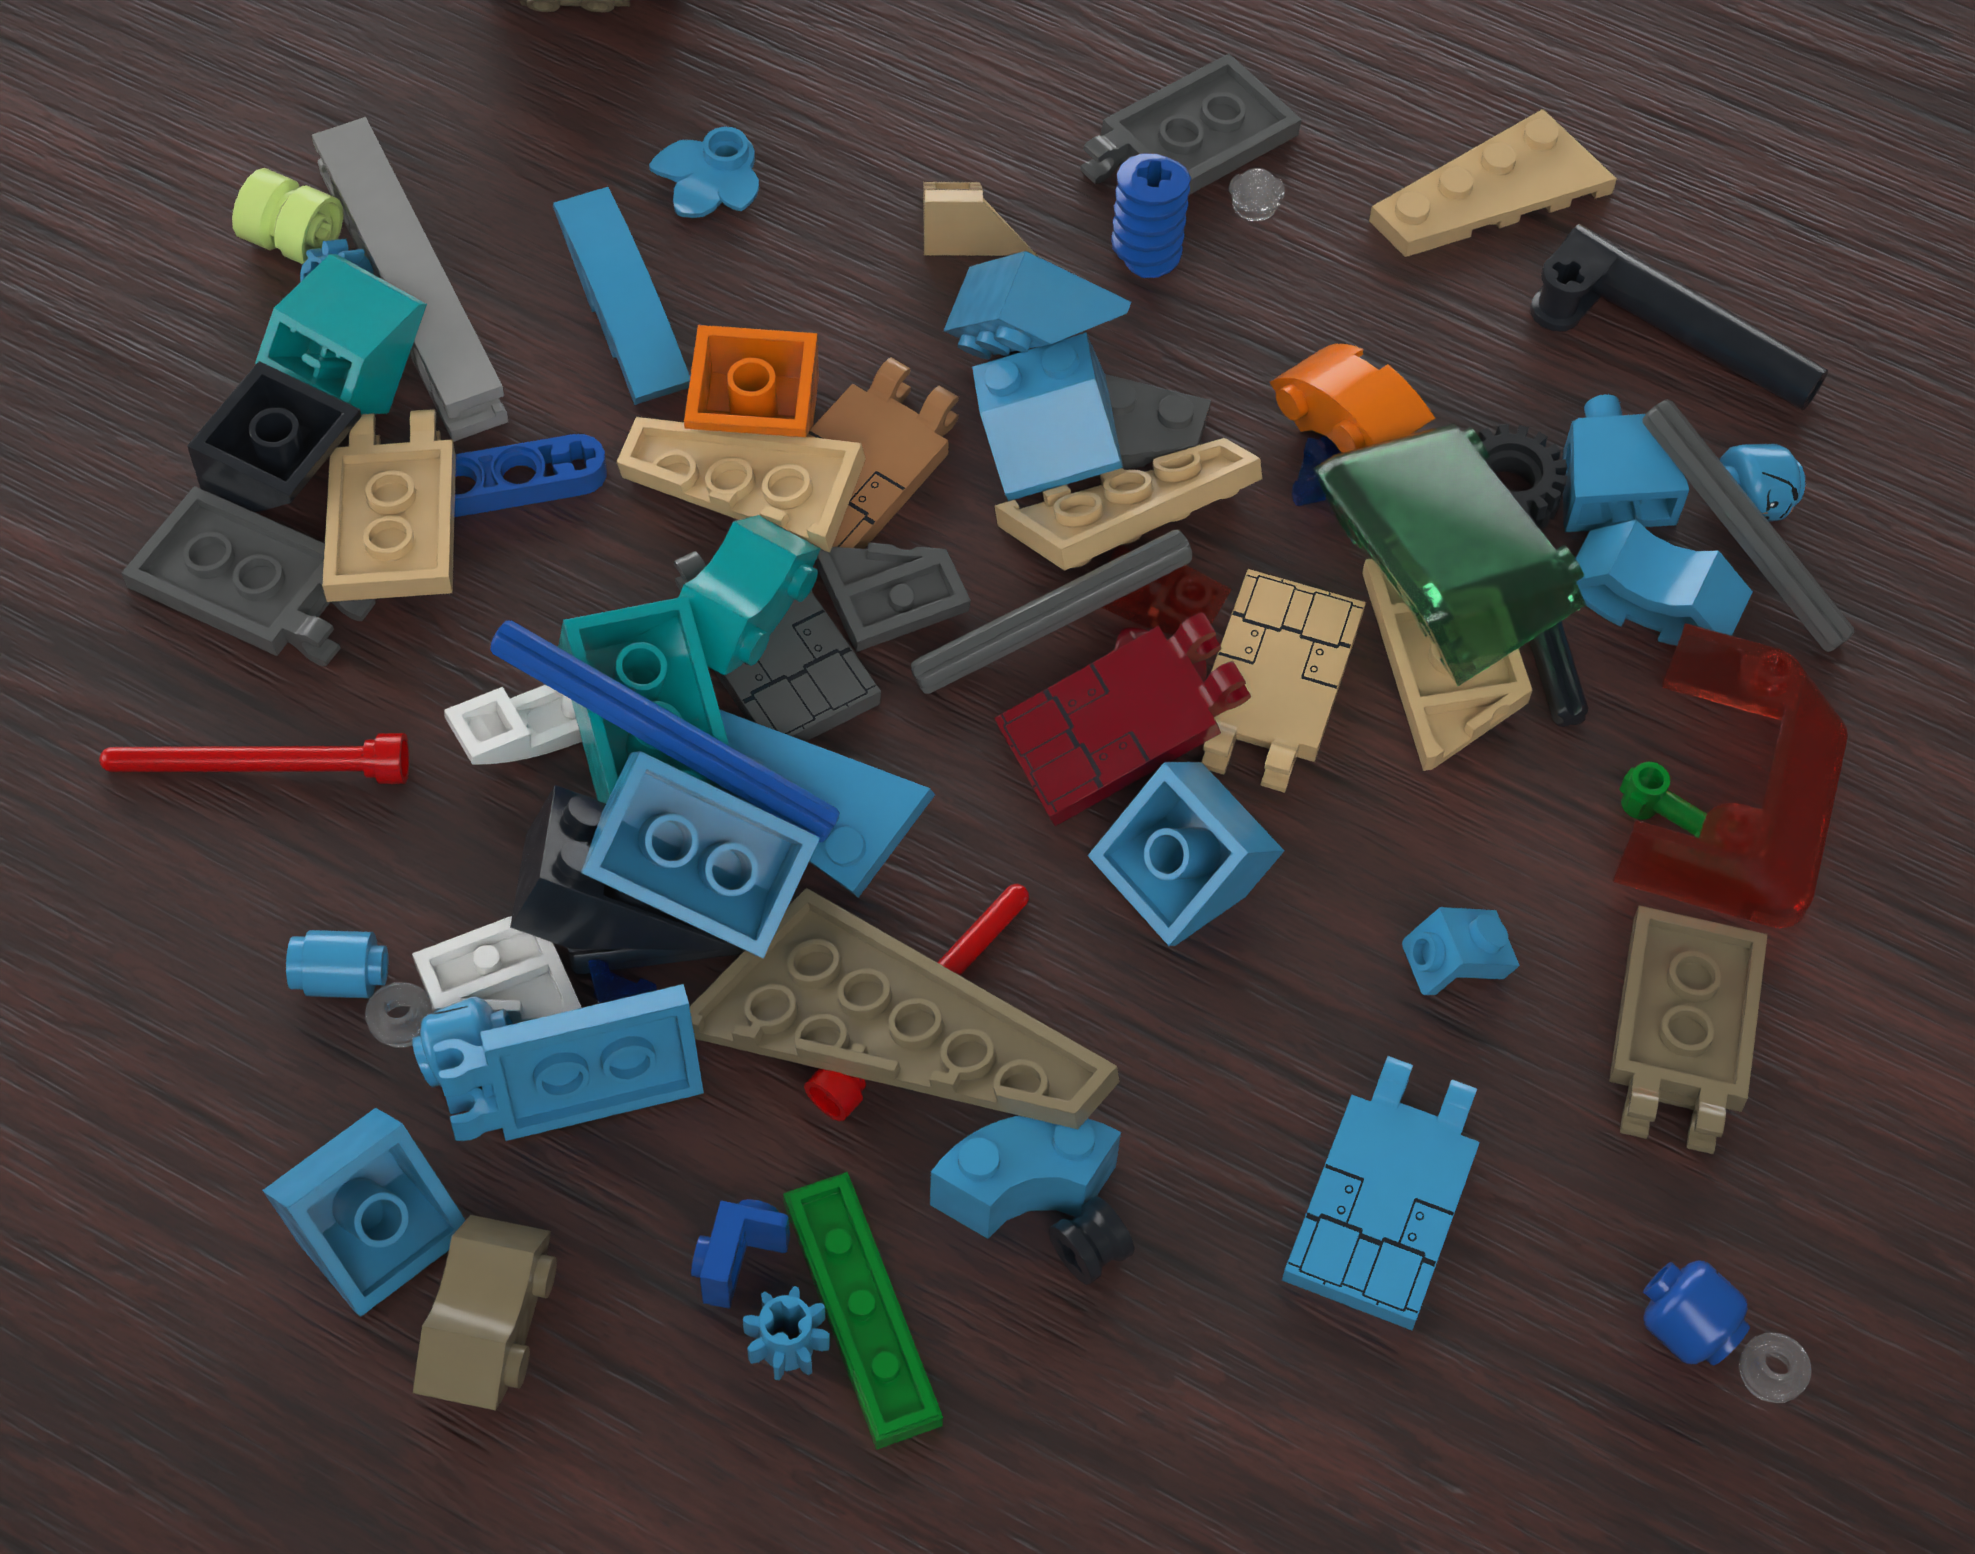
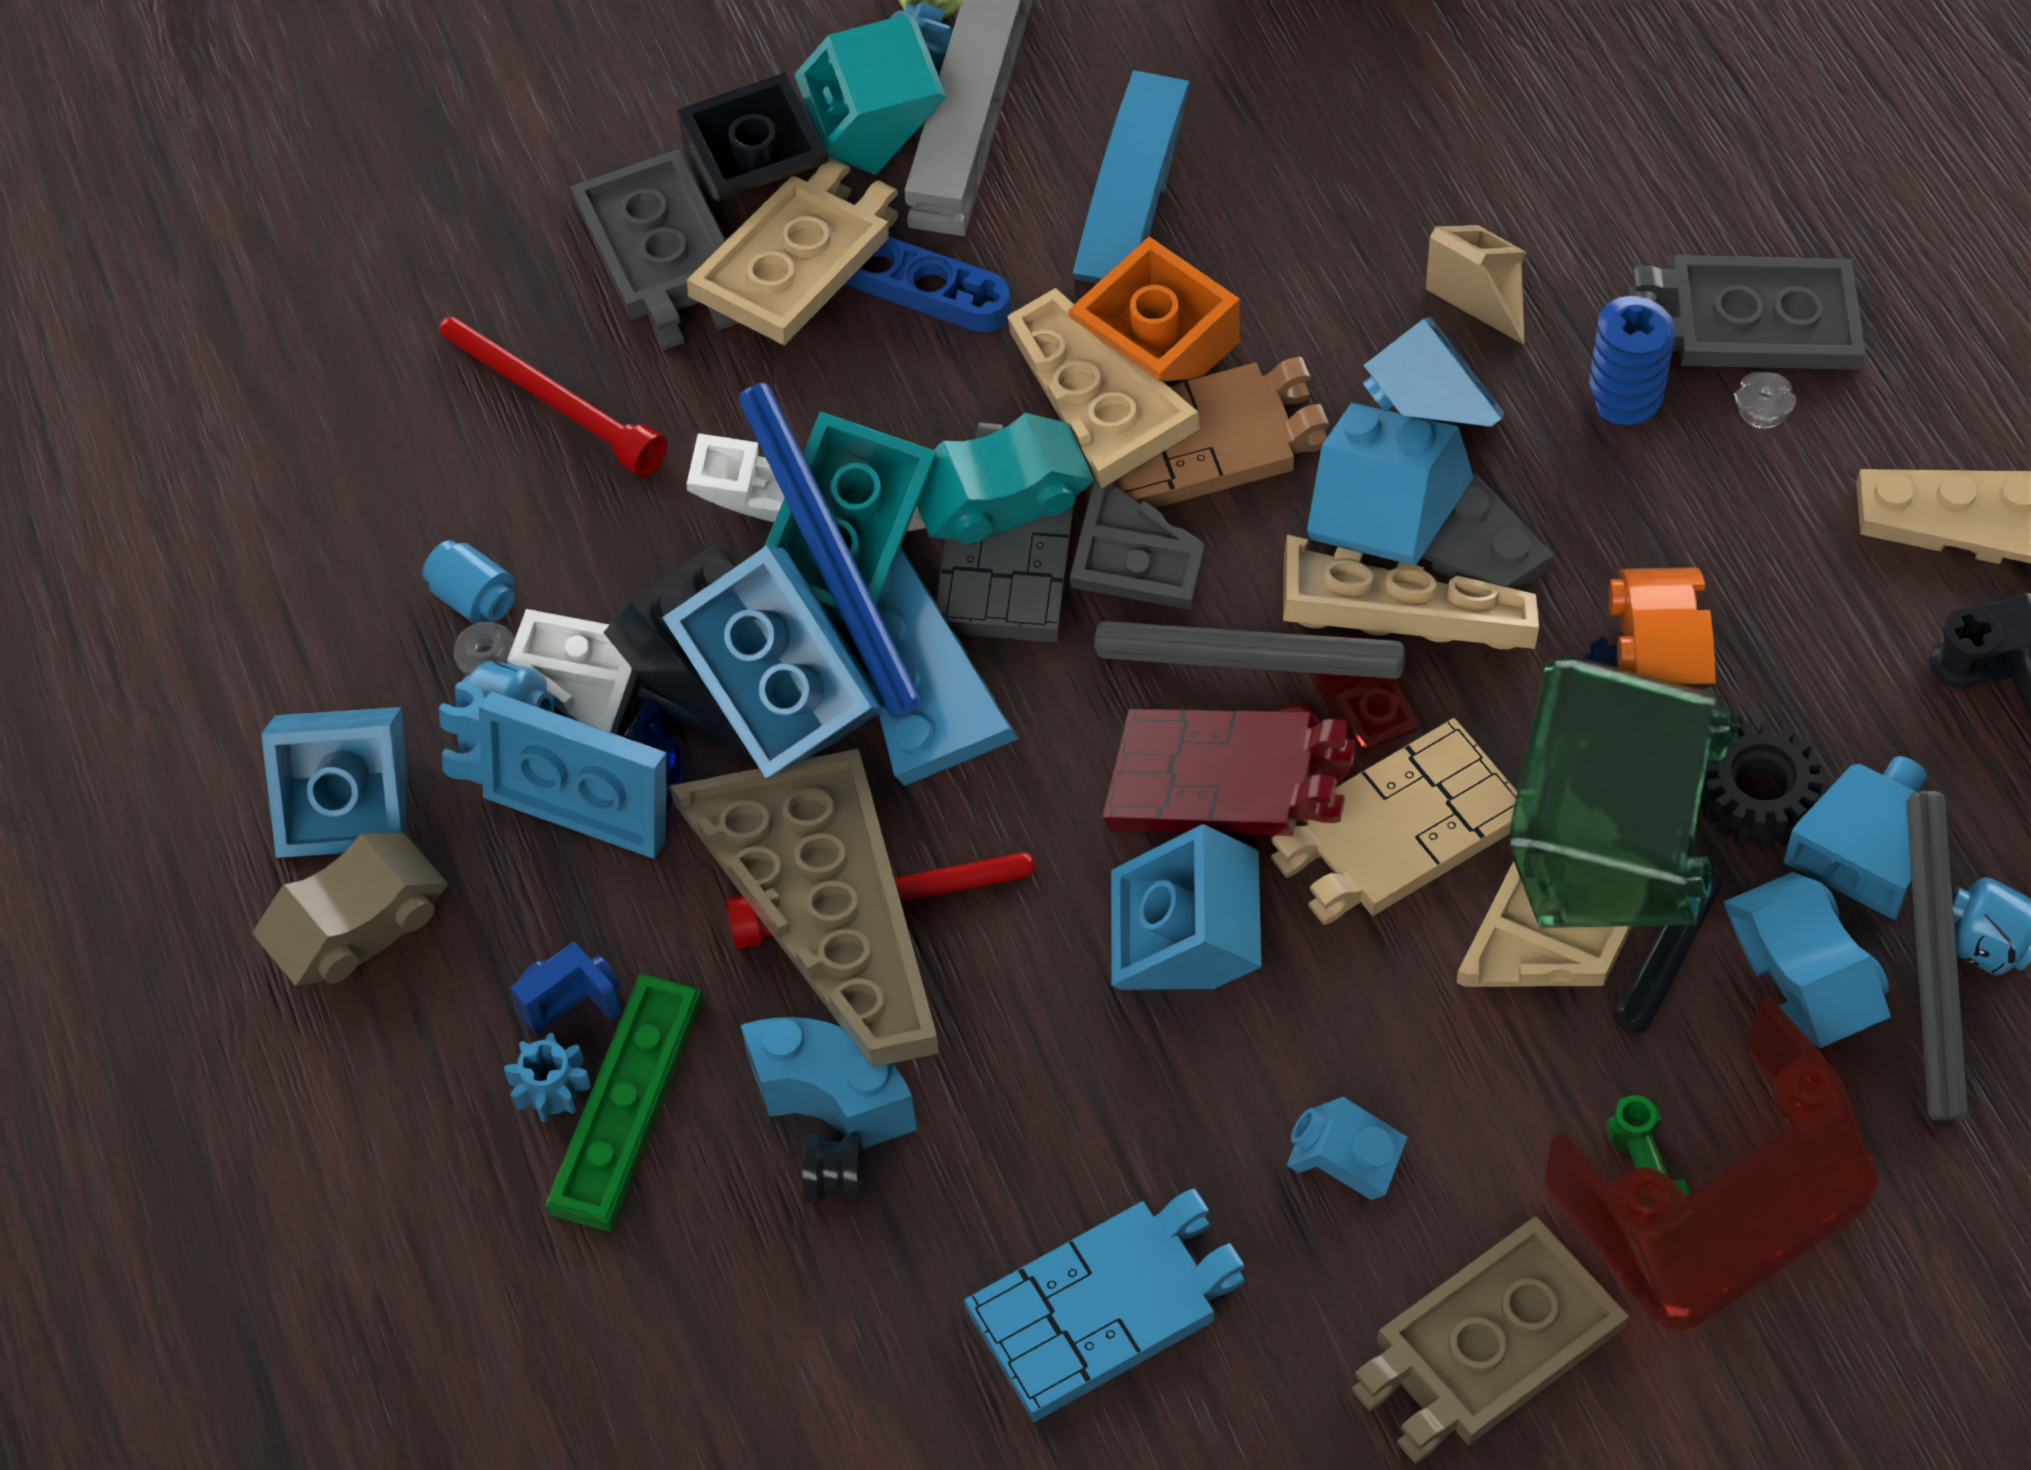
camera: 45 degrees right, 0 degrees up
(709, 172) = (1299, 117): dark azure plate -> none

